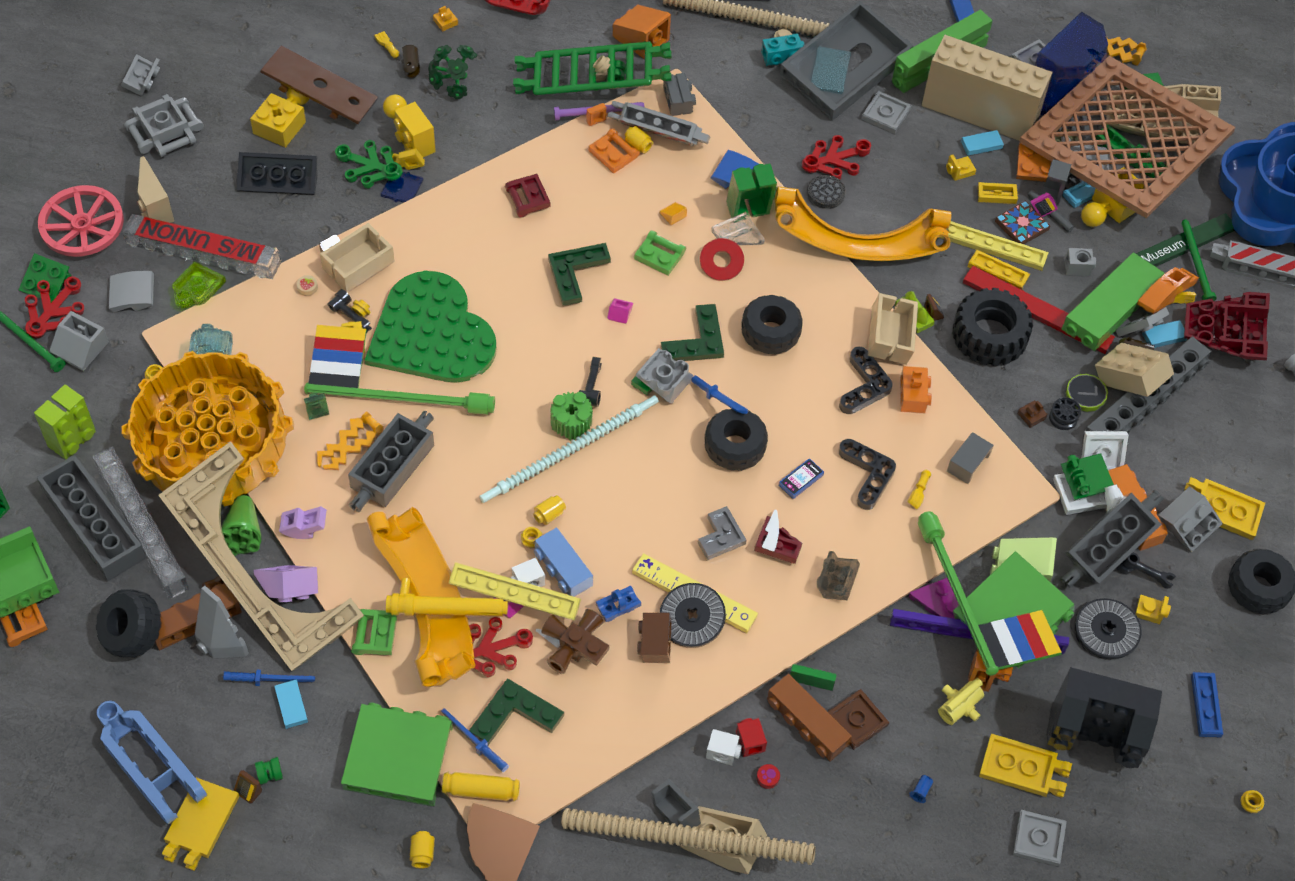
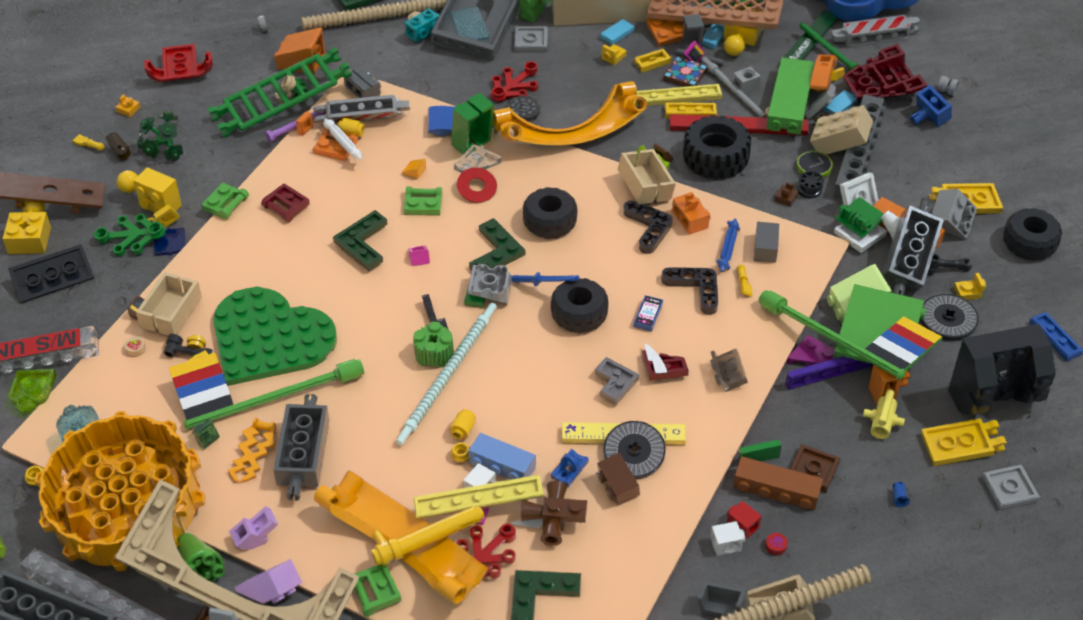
camera: 25 degrees left, 10 degrees down
(471, 163) = (221, 198): none -> bright green plate
(620, 152) = (341, 137): none -> white wheel
(930, 442) = (728, 245): none -> blue wheel
(1055, 233) = (714, 70): none -> light grey bar
(1259, 384) = (931, 106): none -> blue brick

